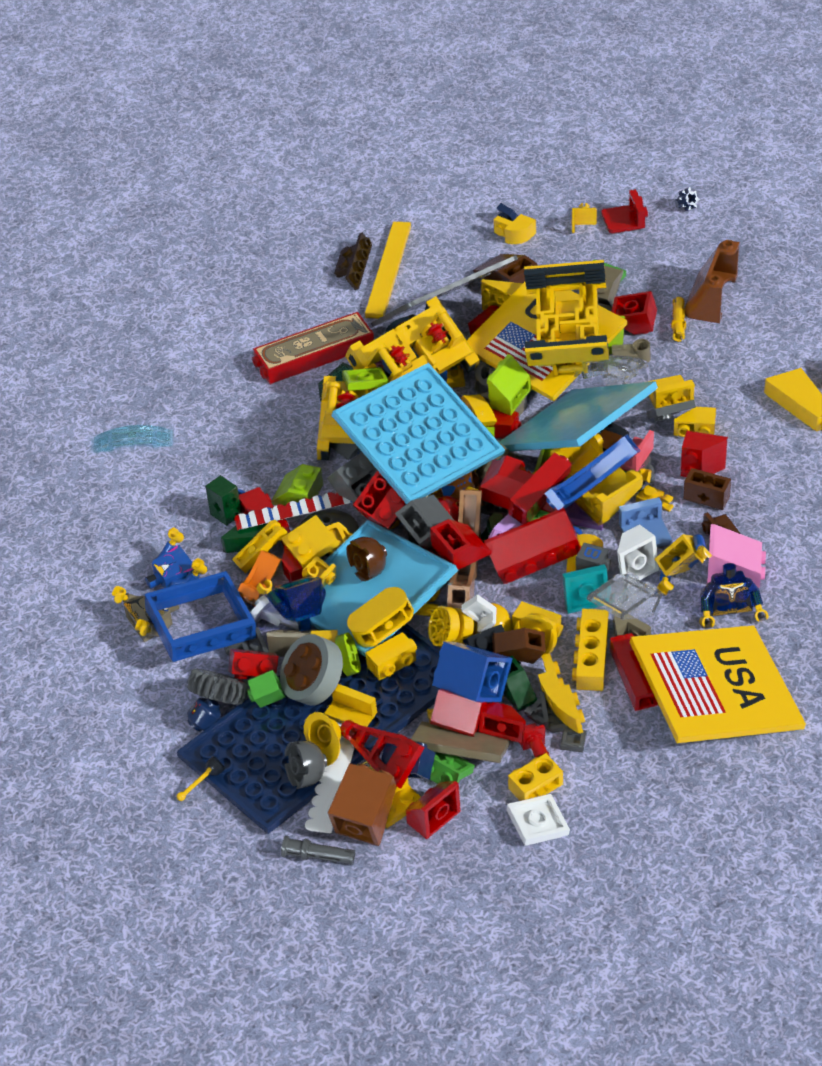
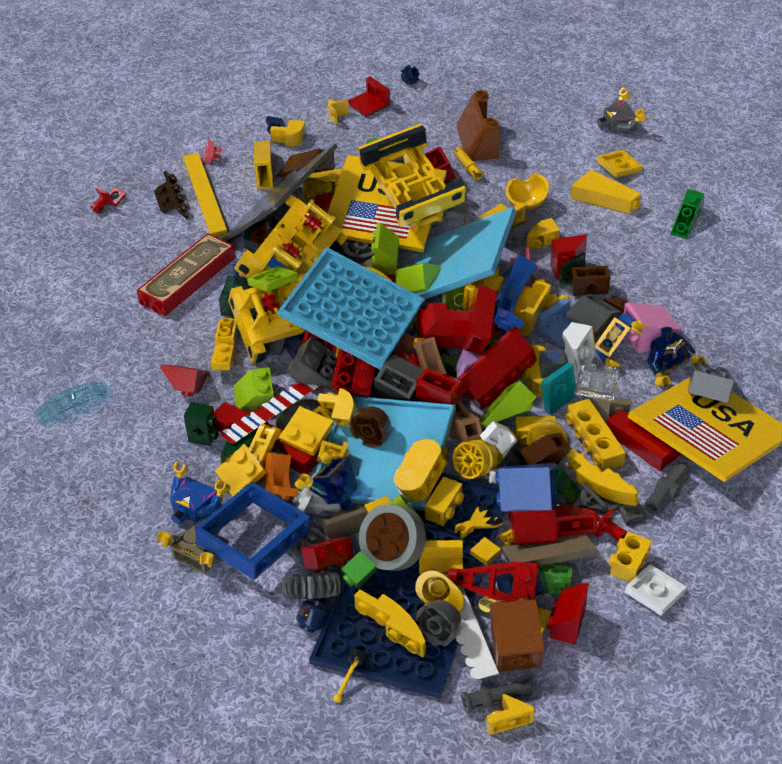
camera: 30 degrees left, 0 degrees up
(233, 557) = (240, 470): none -> yellow plate
(243, 451) = (185, 378): none -> red slope
(266, 747) = (398, 623): none -> yellow slope
(286, 245) = (105, 198): none -> red bracket
(300, 435) = (224, 344): none -> yellow slope
(315, 876) = (514, 715): none -> yellow slope
(354, 526) = (343, 406): none -> yellow brick
(398, 718) = (485, 551): none -> yellow tile
(412, 688) = (478, 521): none -> yellow piece
(423, 226) = (210, 151): none -> coral tile
(462, 254) = (263, 165): none -> yellow slope
(520, 425) = (417, 277): none -> lime slope
(521, 587) = (512, 401): none -> lime slope
(624, 729) = (667, 489): none -> dark grey piece
(677, 520) = (592, 312): none -> dark grey slope
(704, 464) = (565, 272): none -> clear green piece
(710, 372) = (529, 192): none -> yellow cylinder
(747, 638) = (710, 382): none -> slope

